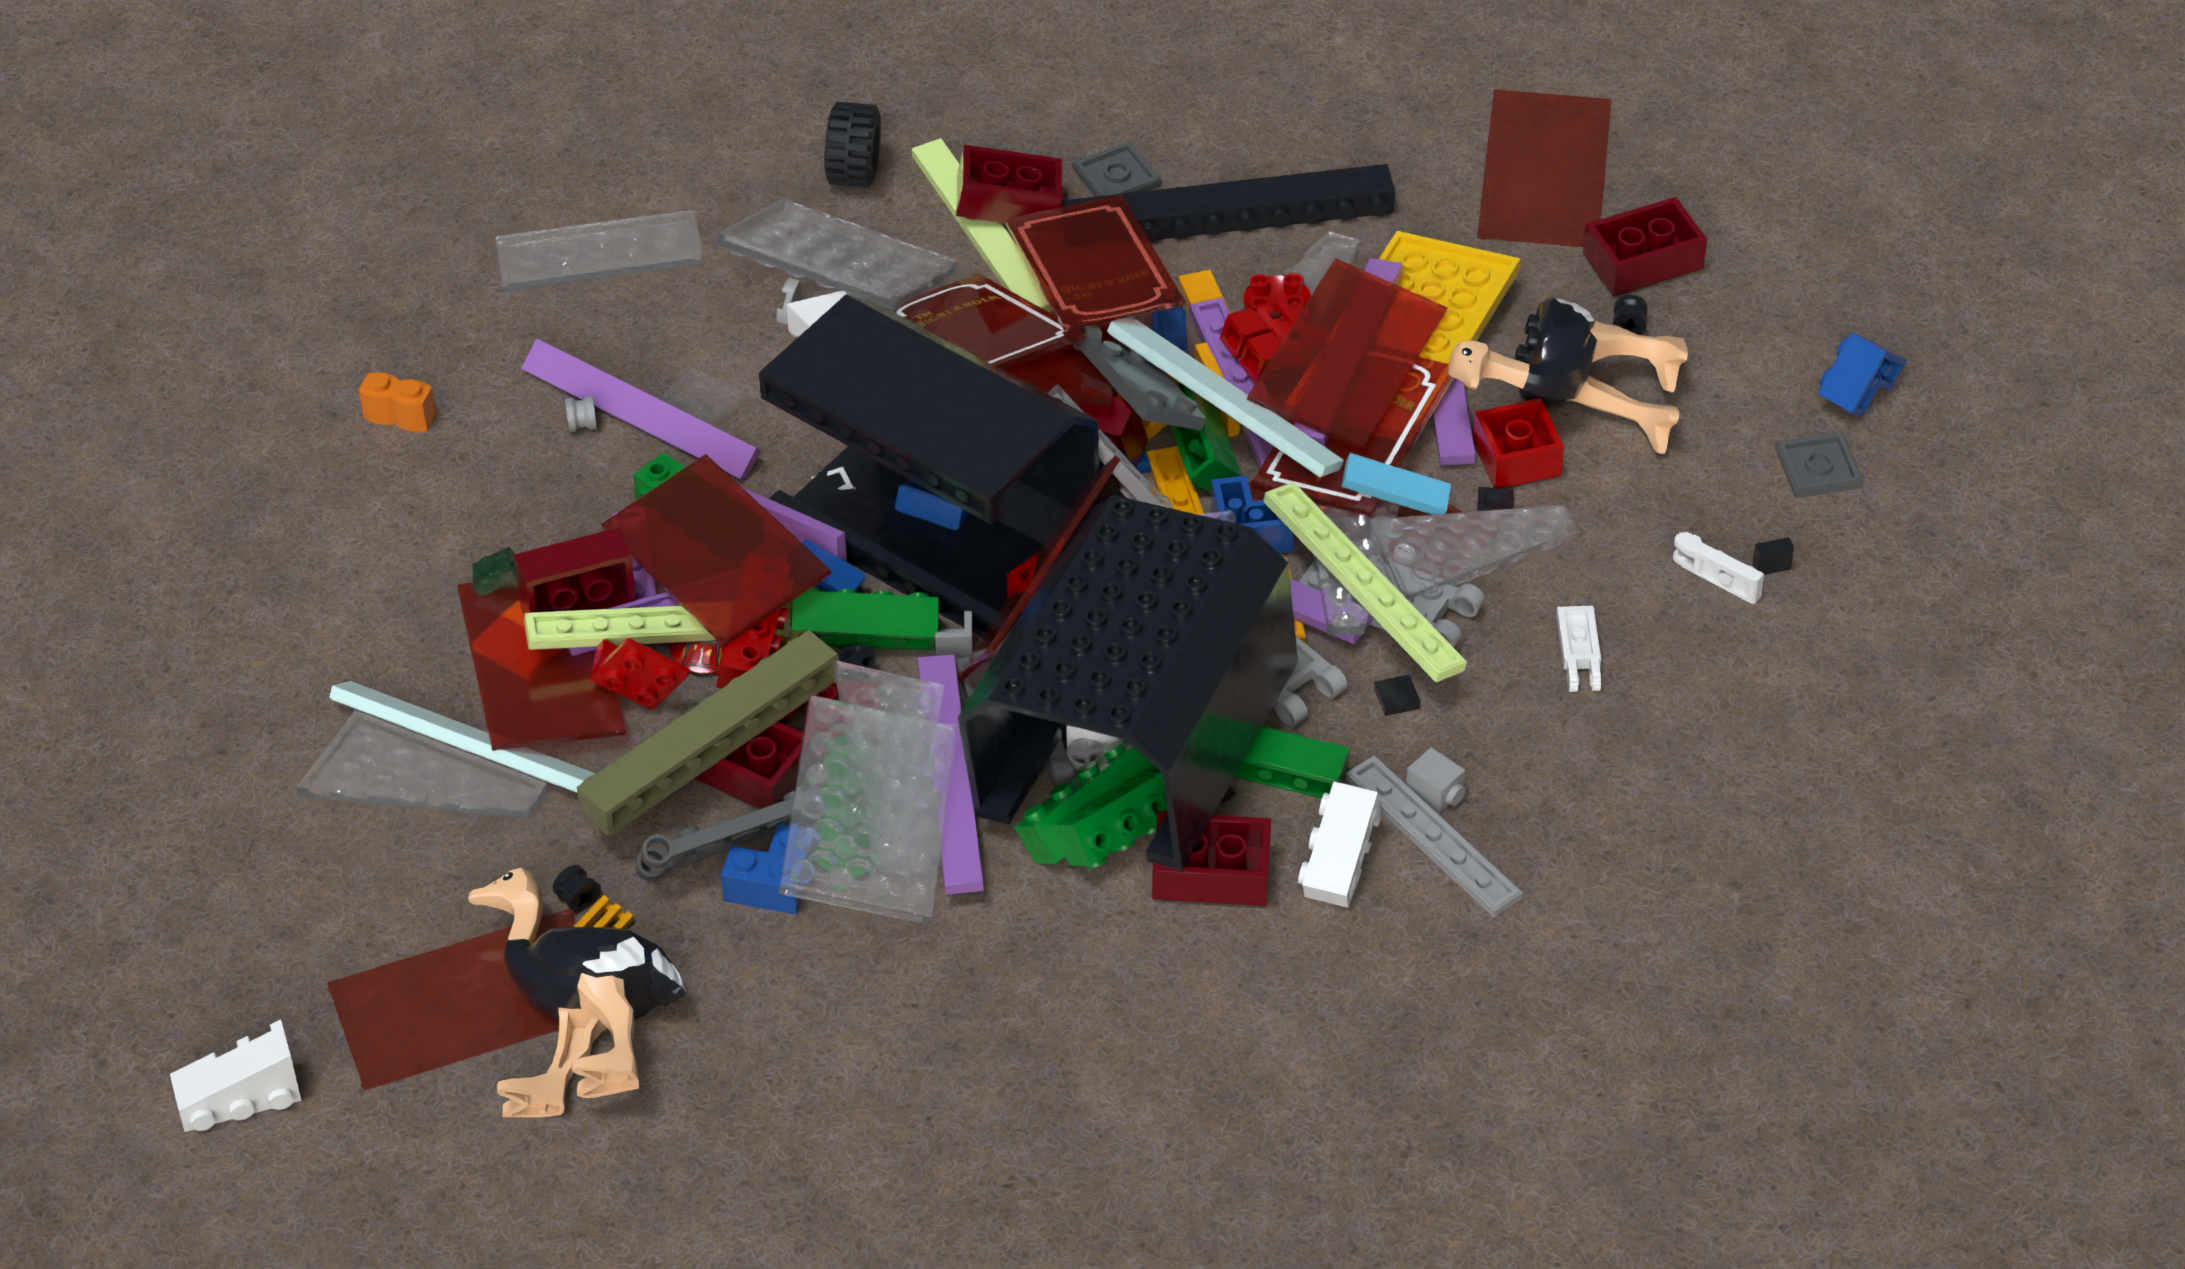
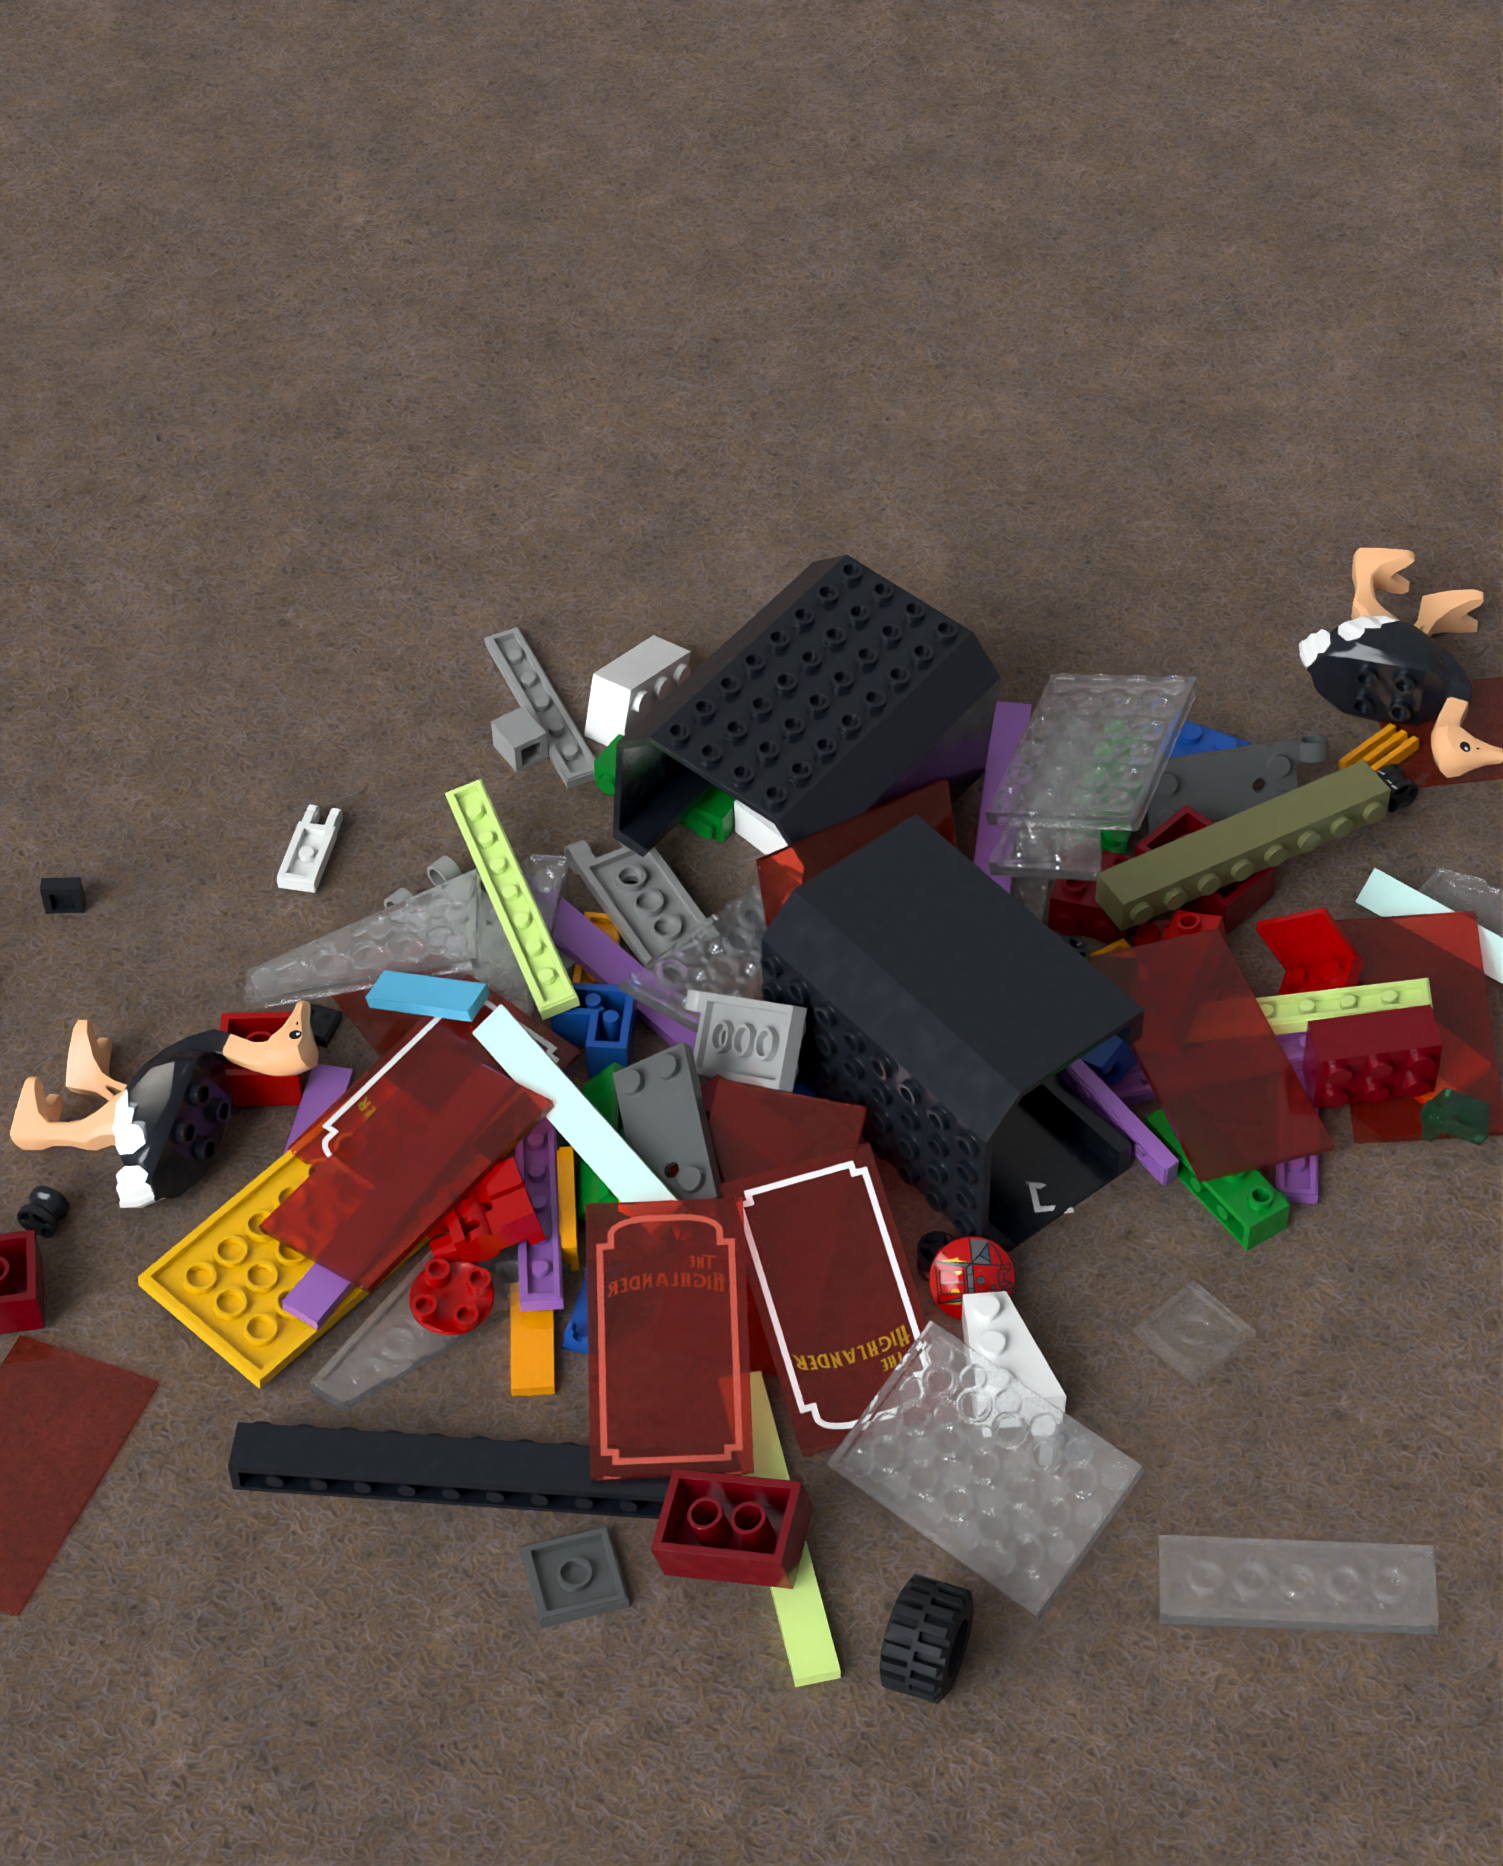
camera: 165 degrees left, 0 degrees up
(580, 413) = (1344, 1330): light grey wheel -> none
(641, 409) = (1272, 1328): medium lavender tile -> none
(1397, 695) = (521, 837): black tile -> none
(1718, 567) = (124, 896): white hinge -> none

